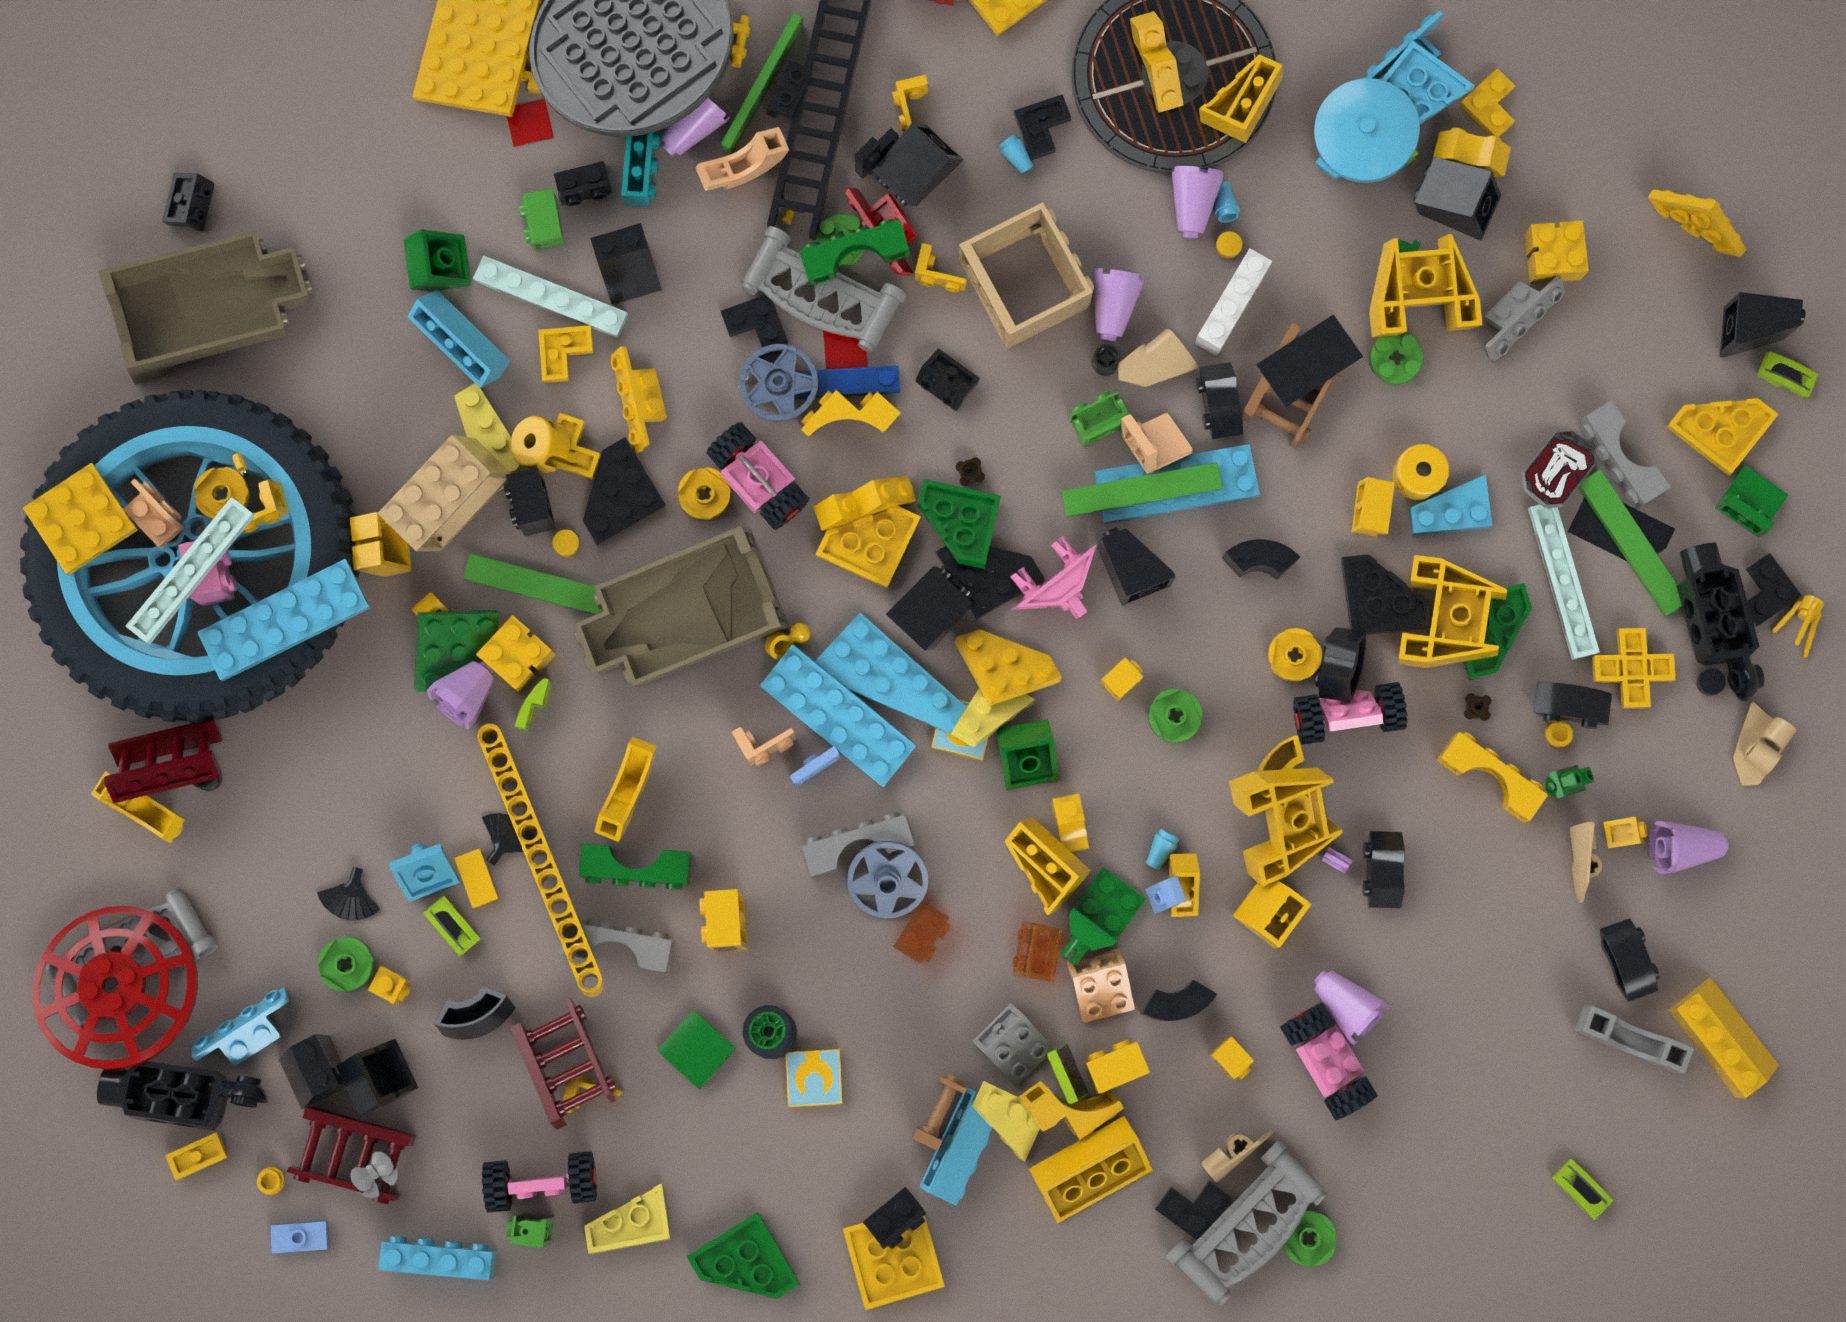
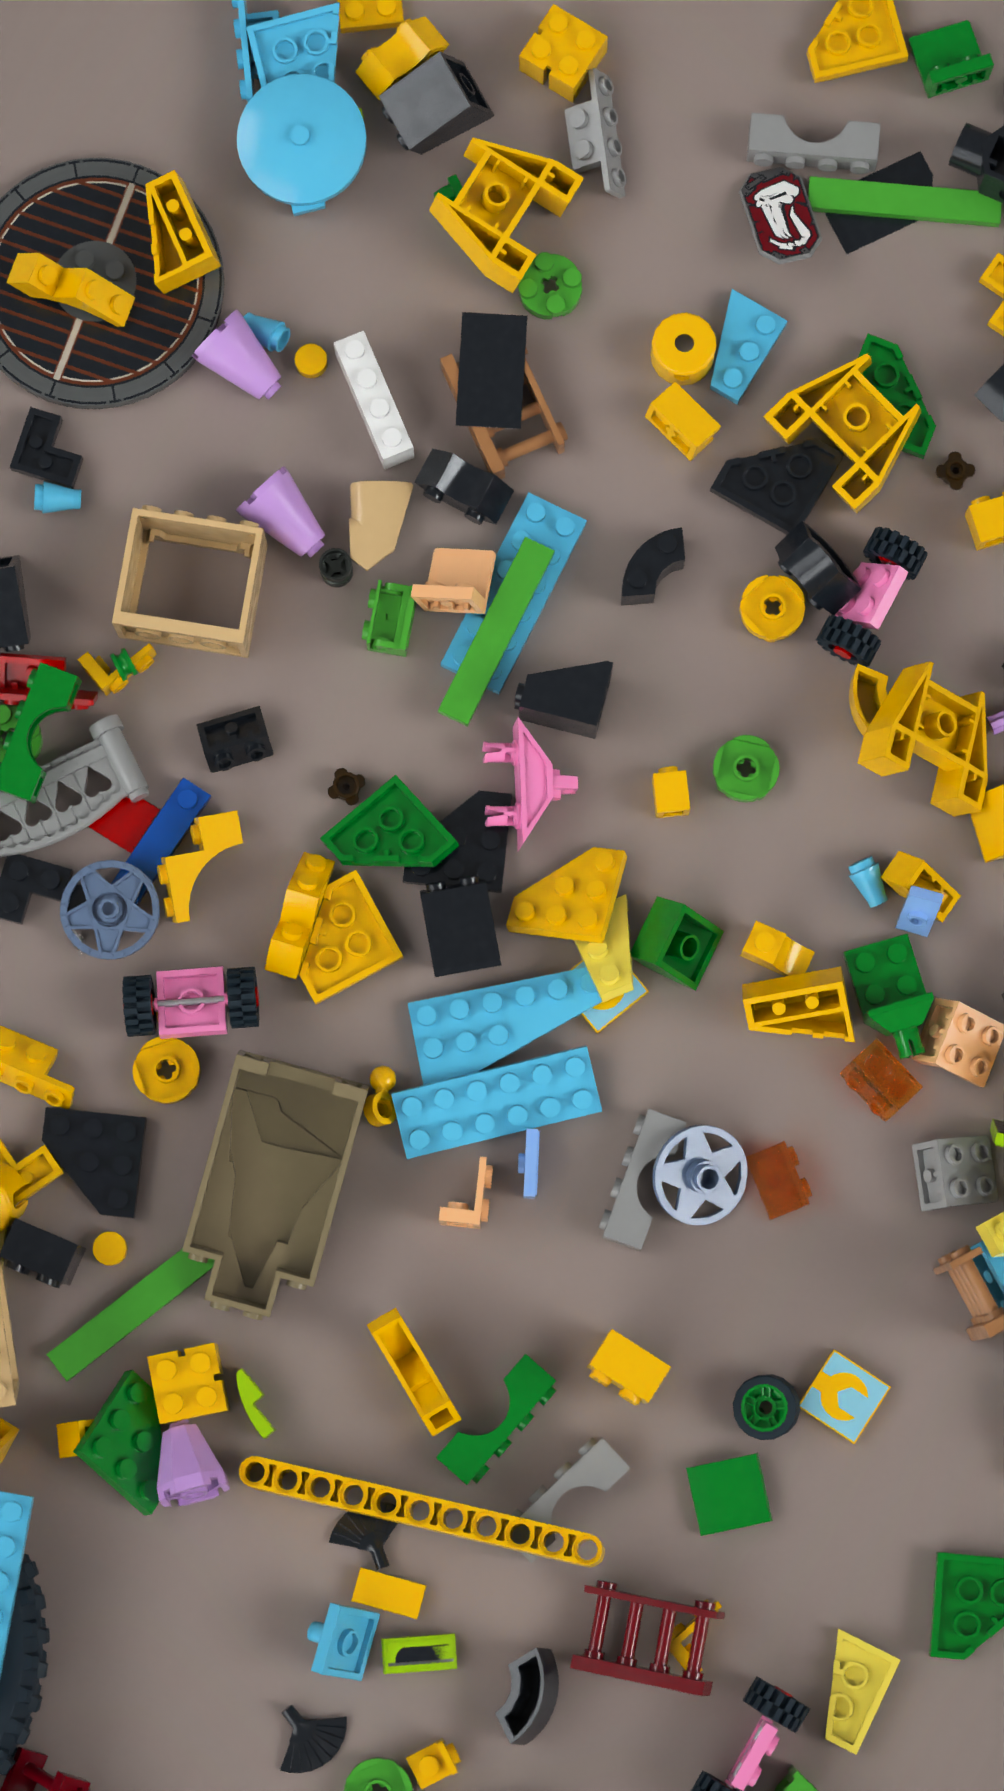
camera: 50 degrees left, 0 degrees up
(939, 272) = (123, 664): none -> green bush
(1564, 581) = (894, 295): light aqua plate -> none

